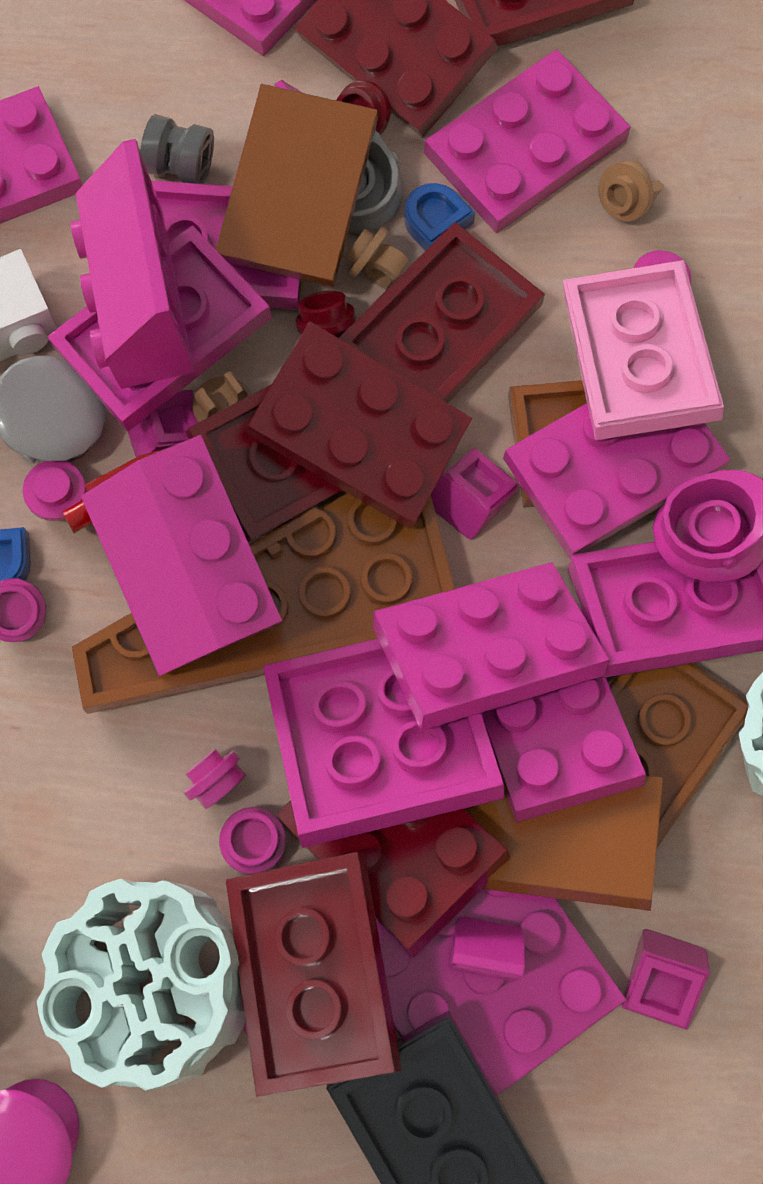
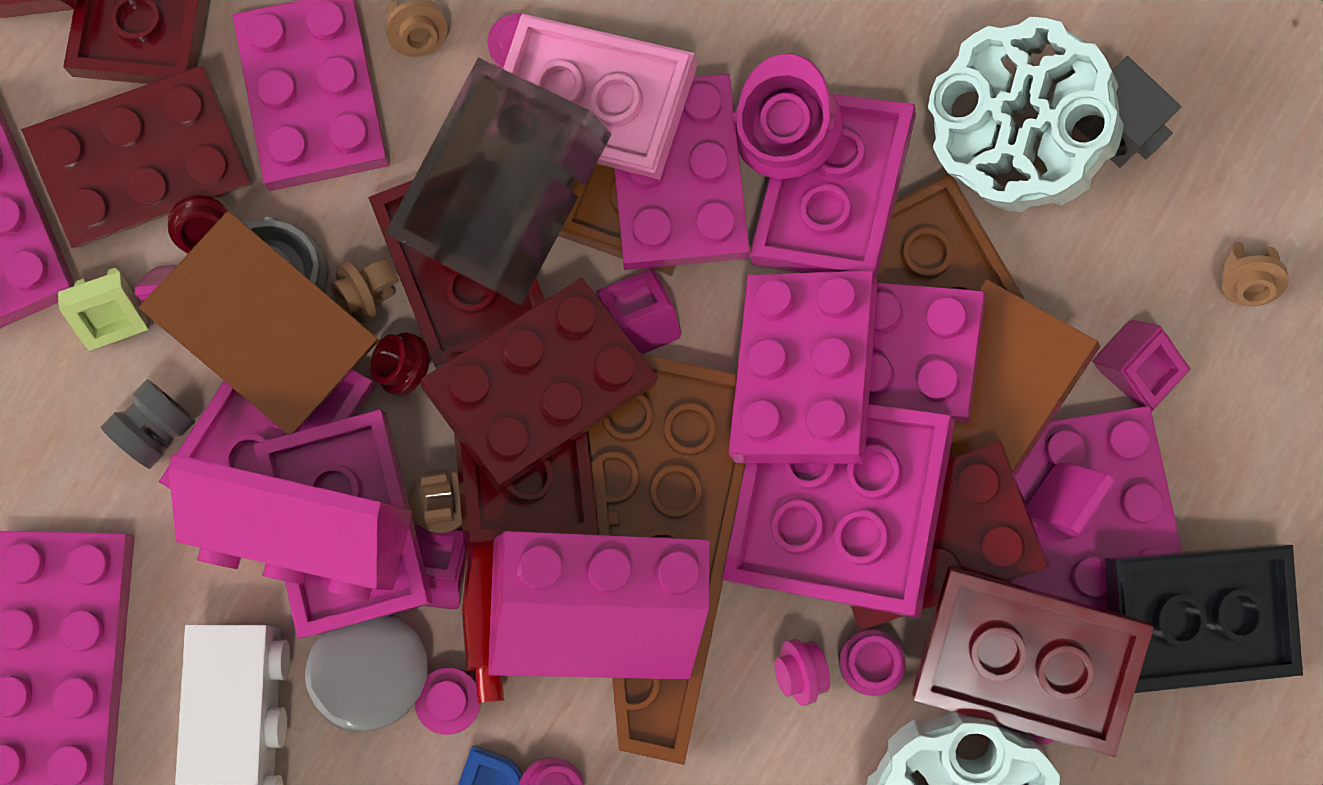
camera: 65 degrees left, 5 degrees up
(249, 65) = (102, 310): none -> yellowish green tile
(432, 211) = (344, 213): blue tile -> none
(512, 301) = (499, 180): none -> clear smoke piece

